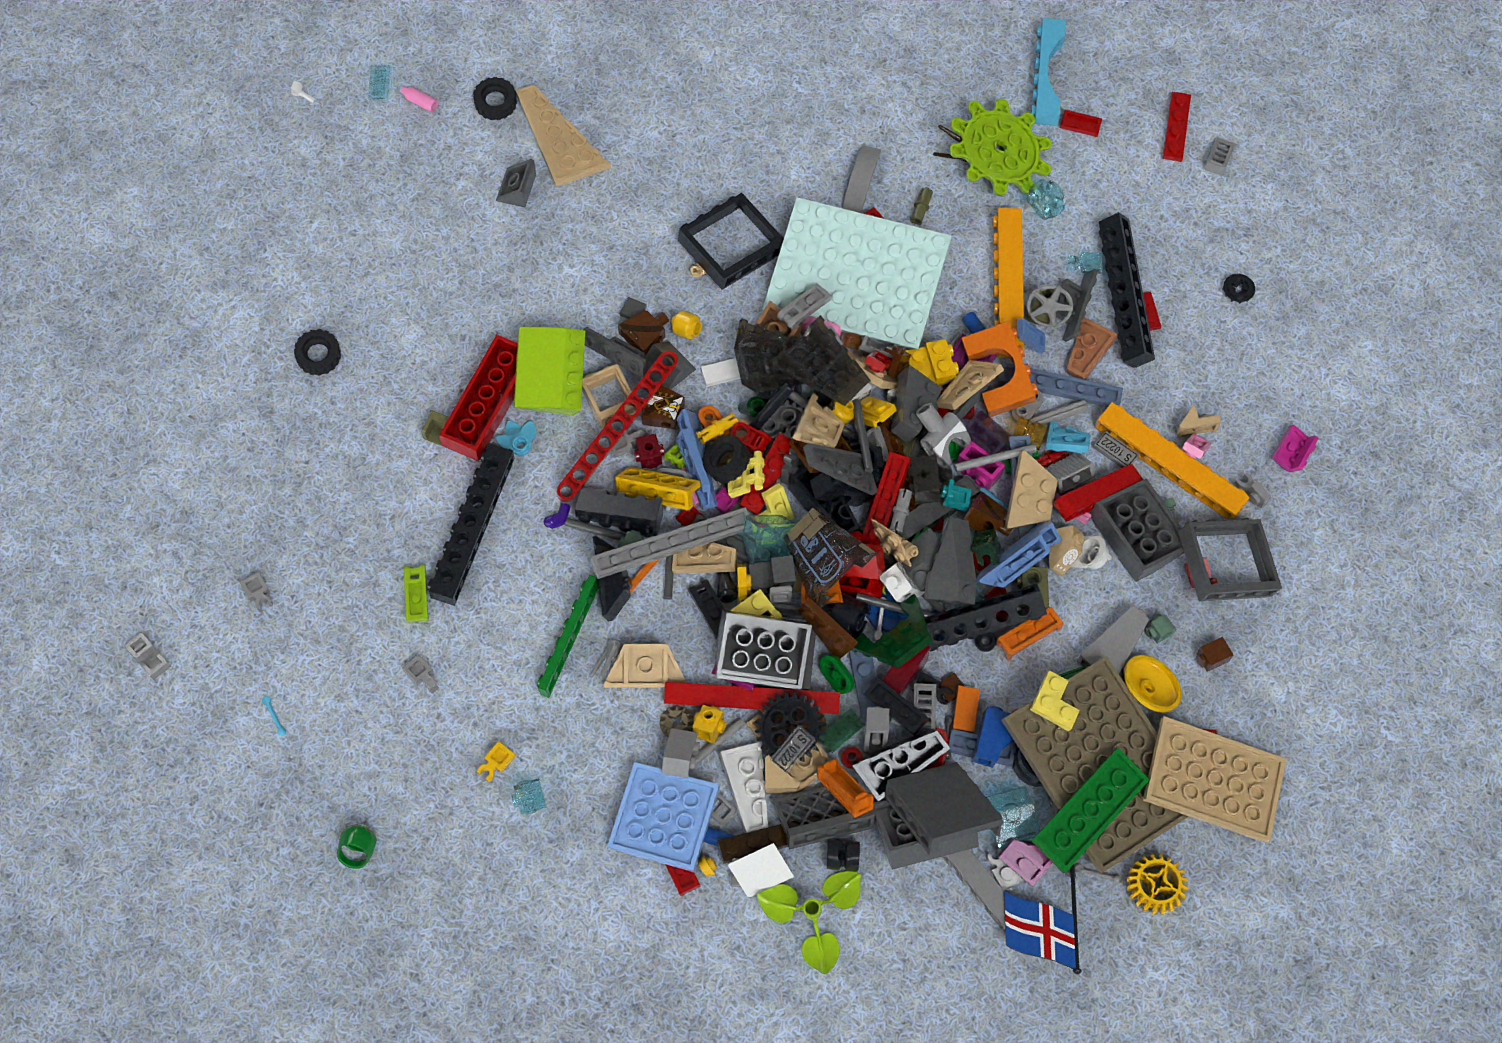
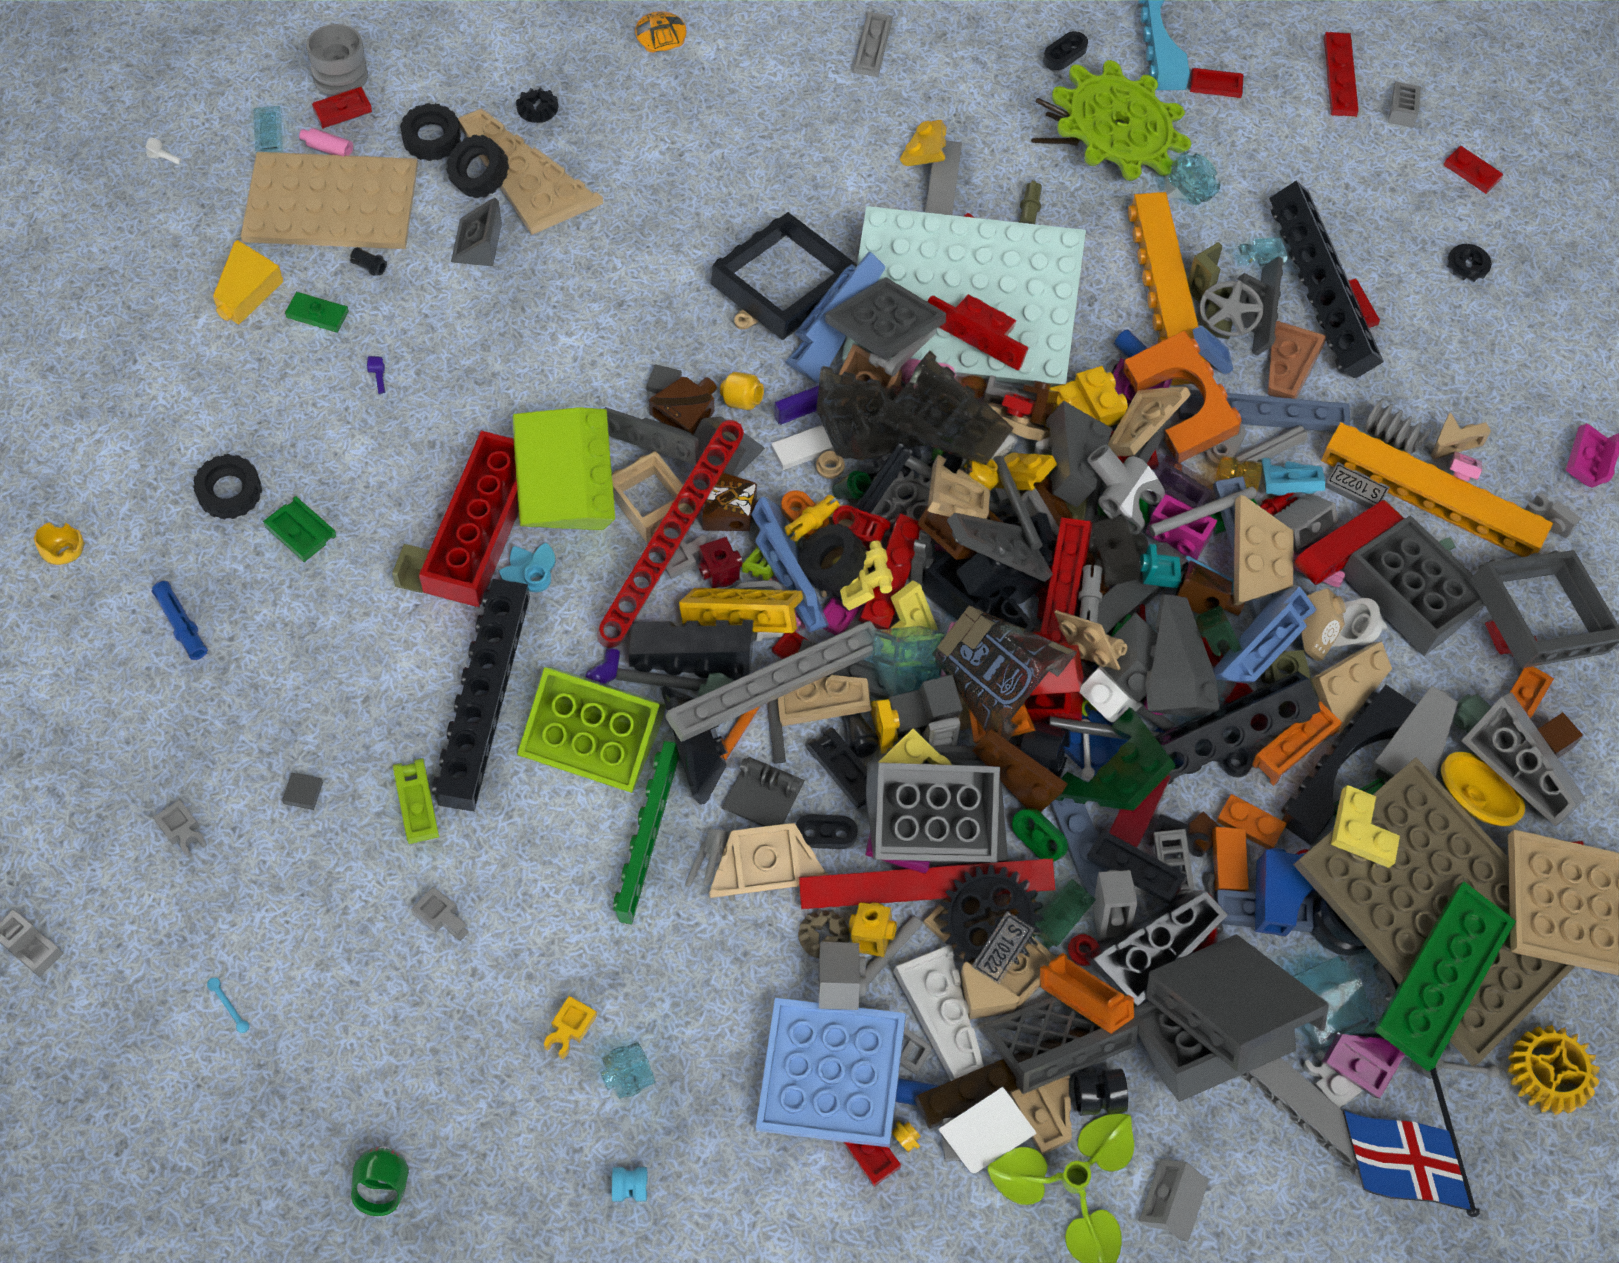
camera: 10 degrees left, 5 degrees down
(193, 376) = (52, 539): none -> yellow hair
(275, 452) = (184, 629): none -> blue pin
(341, 576) = (302, 791): none -> dark grey tile
(347, 201) = (245, 283): none -> yellow slope
(363, 389) = (299, 529): none -> green plate
(395, 228) = (316, 312): none -> green plate
(416, 143) = (330, 200): none -> tan plate
(431, 273) = (376, 365): none -> dark purple hand
(434, 71) = (341, 107): none -> red plate
(435, 35) = (337, 59): none -> light grey wheel
(437, 194) = (368, 261): none -> black pin
(512, 124) = (492, 176): none -> black tyre
(519, 871) = (629, 1184): none -> medium azure wheel
(541, 558) = (591, 729): none -> lime slope
(579, 90) = (544, 111): none -> black gear
(652, 619) = (763, 793): none -> dark grey hinge
(674, 36) = (660, 31): none -> light orange dish
(691, 649) = (826, 828): none -> black plate
(721, 341) = (796, 406): none -> dark purple tile
(739, 394) = (830, 457): none -> tan plate
(760, 278) = (820, 339): none -> medium blue wedge
(794, 286) = (885, 318): none -> dark grey plate
(804, 864) = (1047, 1113): none -> tan wing
(829, 63) = (872, 44): none -> light grey tile
(853, 149) = (926, 144): none -> yellow wing
(862, 299) = (983, 329): none -> red bracket
(879, 933) = (1174, 1198): none -> light grey panel
(970, 84) = (1061, 54): none -> black plate
(989, 685) = (1259, 825): none -> orange plate
(1036, 273) = (1204, 271): none -> olive panel
(1078, 594) = (1351, 681): none -> tan wing
(1089, 626) = (1315, 806): none -> black arch
(1152, 411) = (1395, 428): none -> light grey piece
(1187, 667) = (1522, 757): none -> light grey wedge
(1202, 620) = (1531, 688): none -> orange plate
(1259, 215) = (1473, 169): none -> red plate

